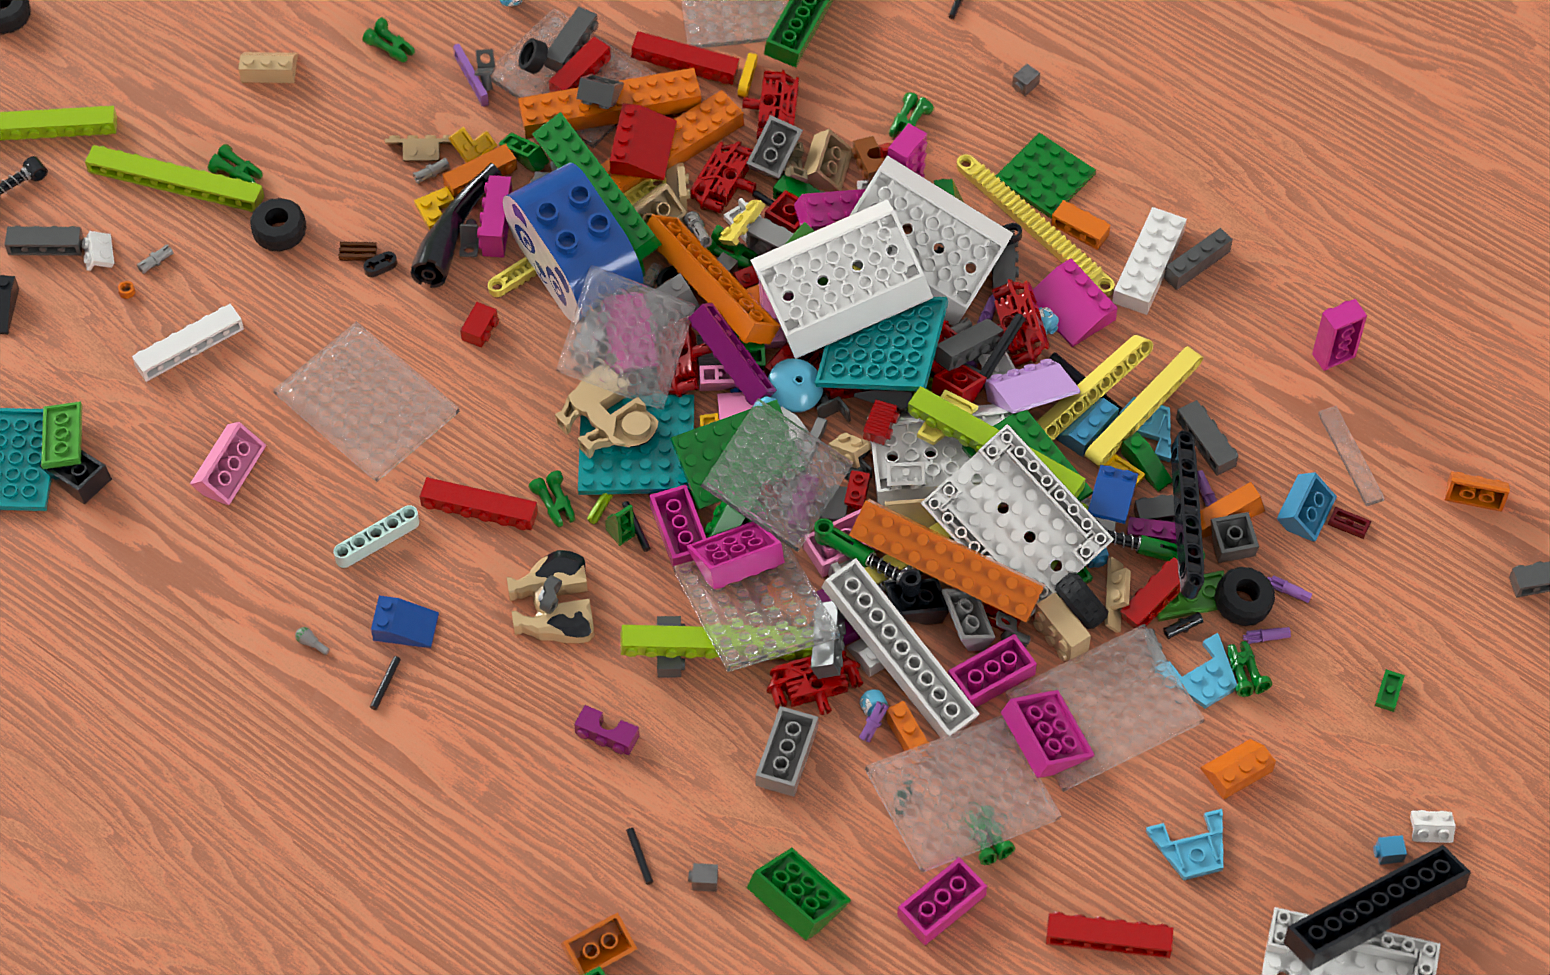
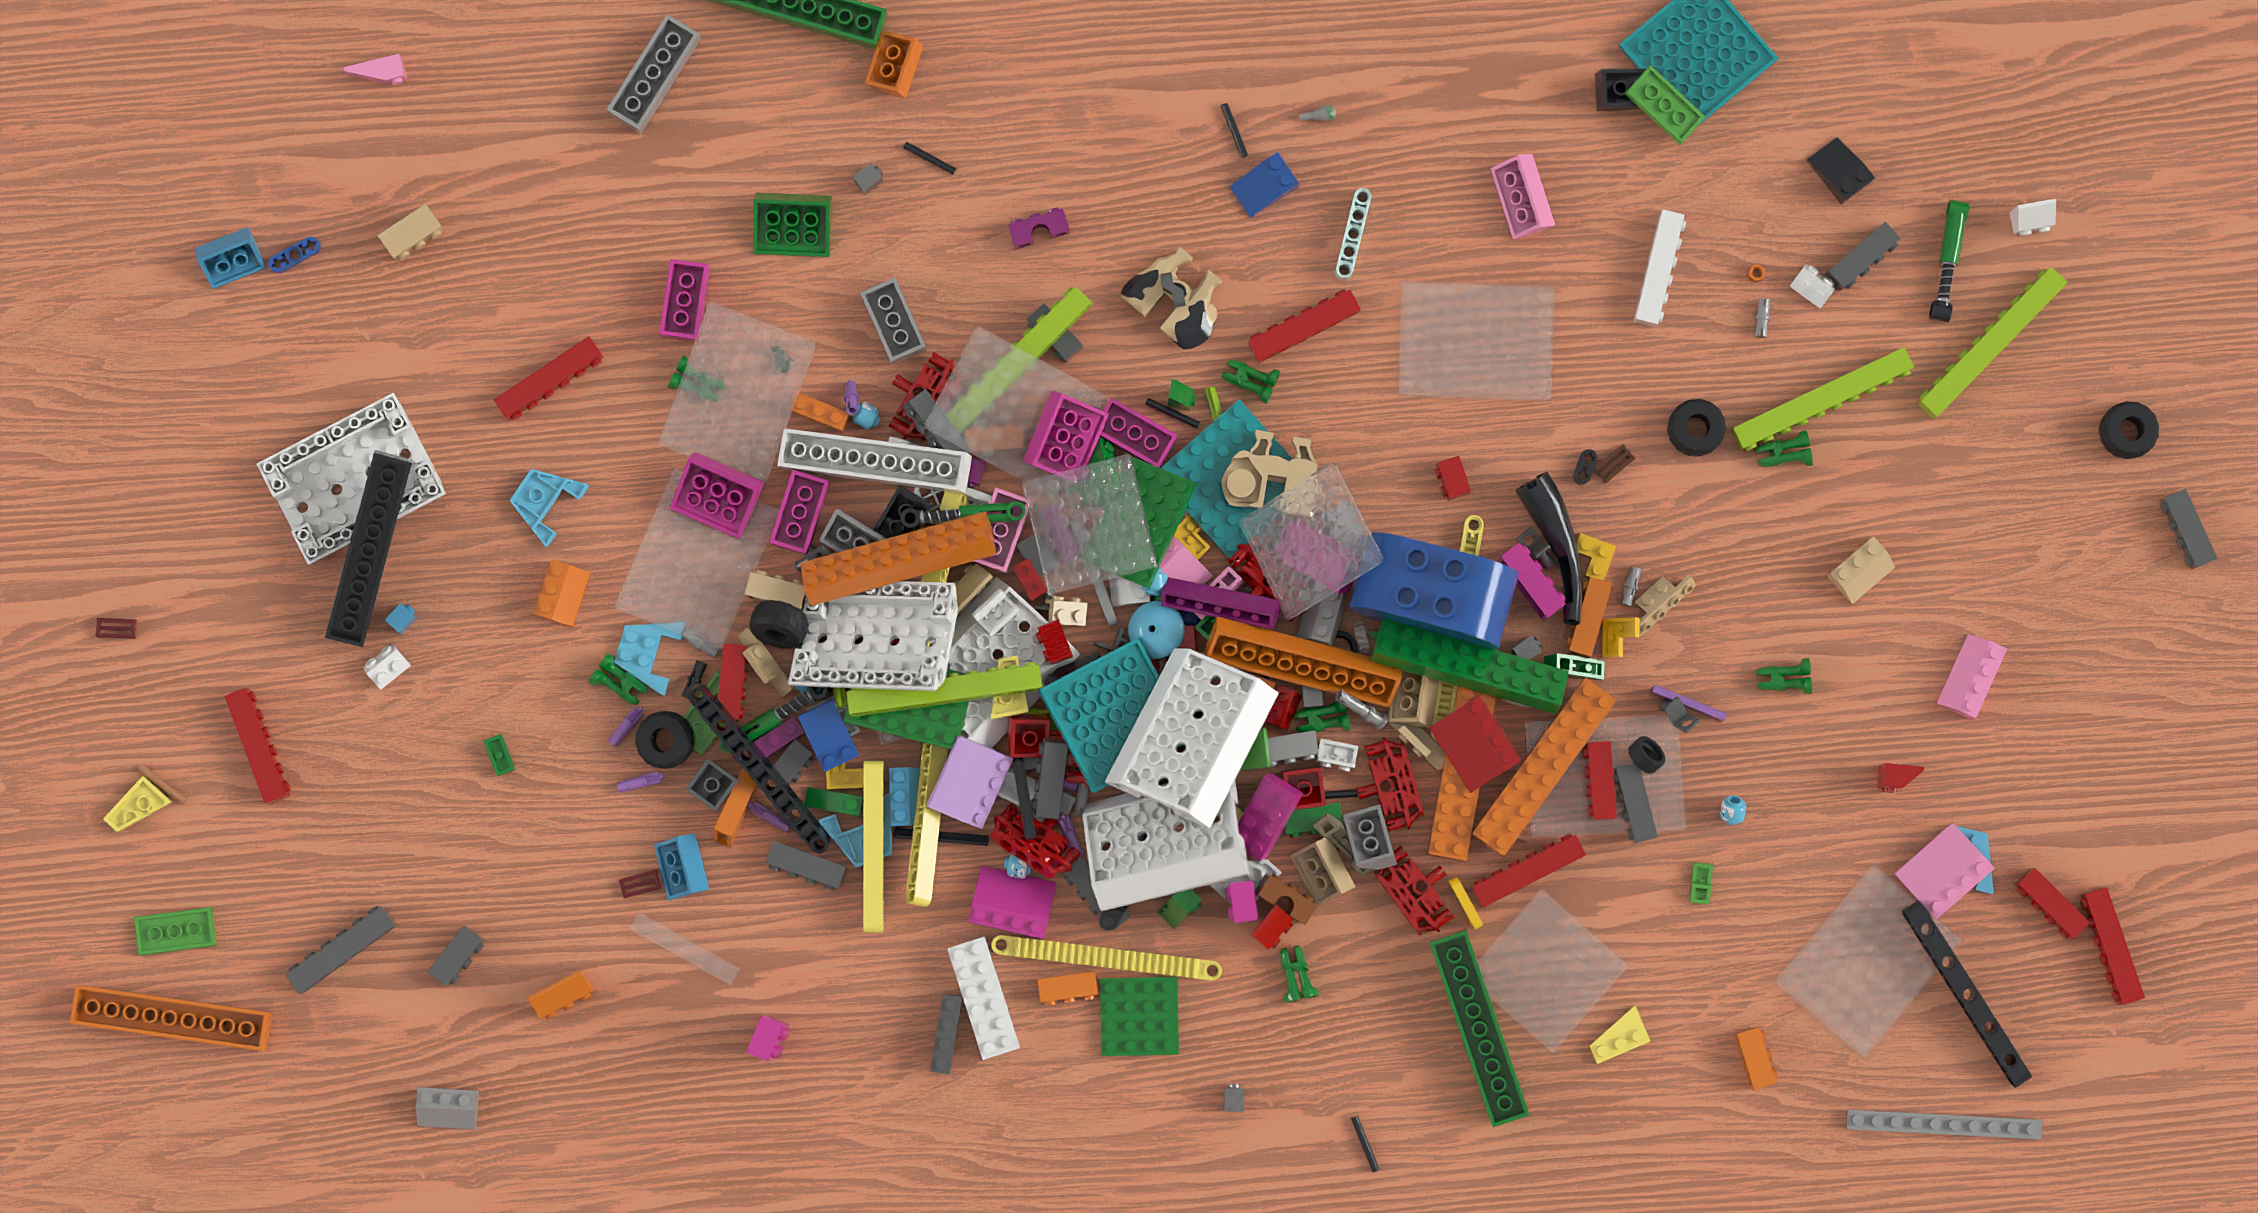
camera: 135 degrees right, 25 degrees up
(599, 91) = (1552, 758): dark grey slope -> none
(739, 227) = (1328, 735): light yellow wing -> none

